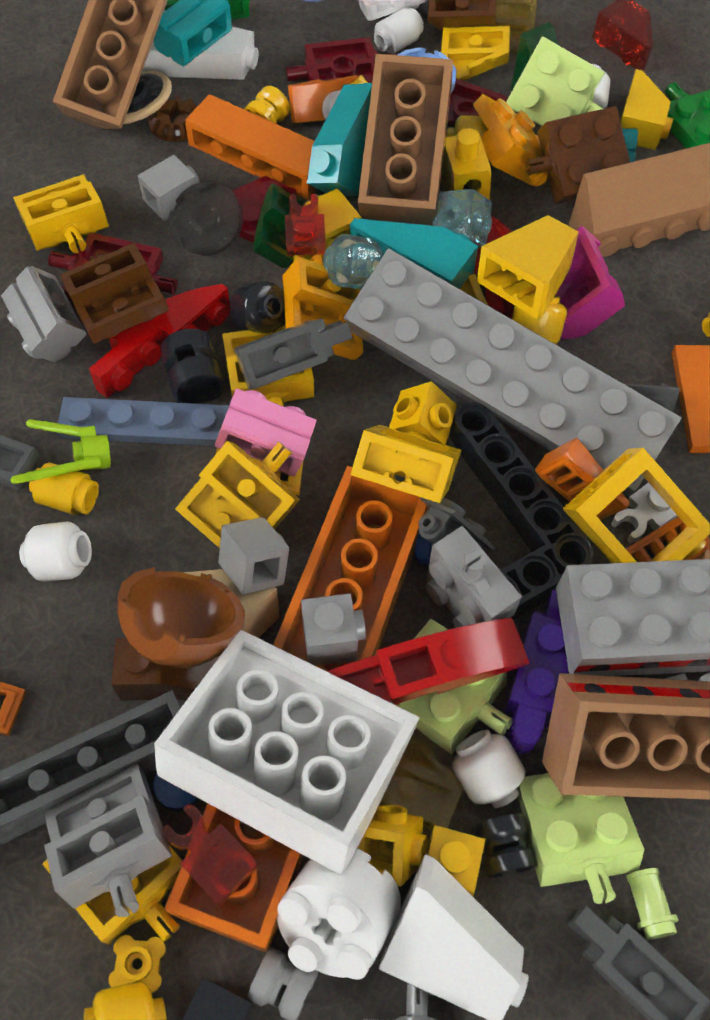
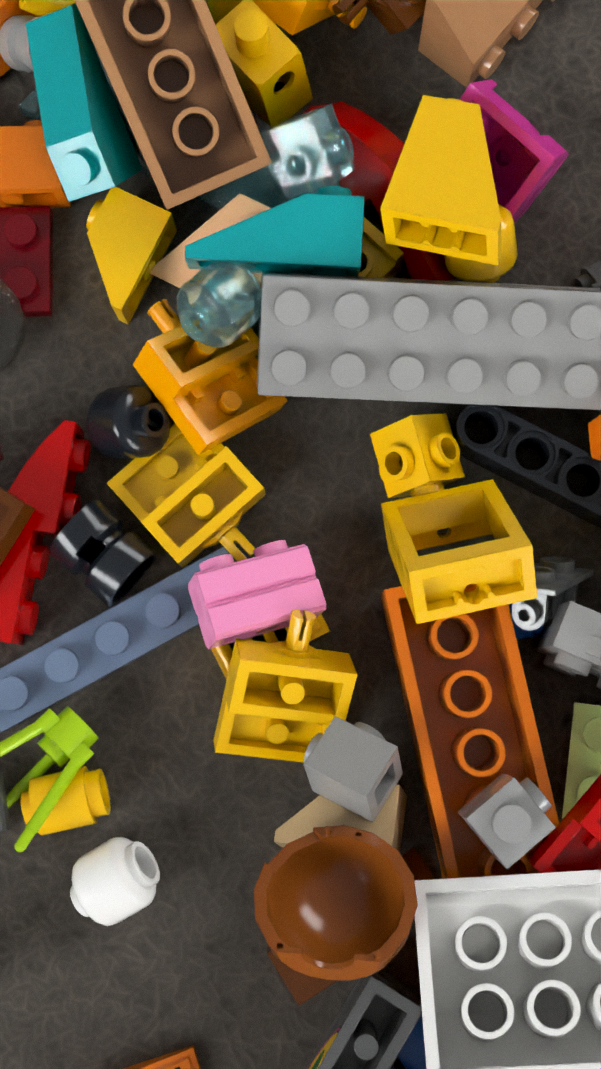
camera: 25 degrees left, 20 degrees up
(271, 227) = (62, 275): dark green slope -> none
(289, 351) = (222, 474): dark grey hinge -> none
(305, 228) = (117, 280): clear red plate -> none

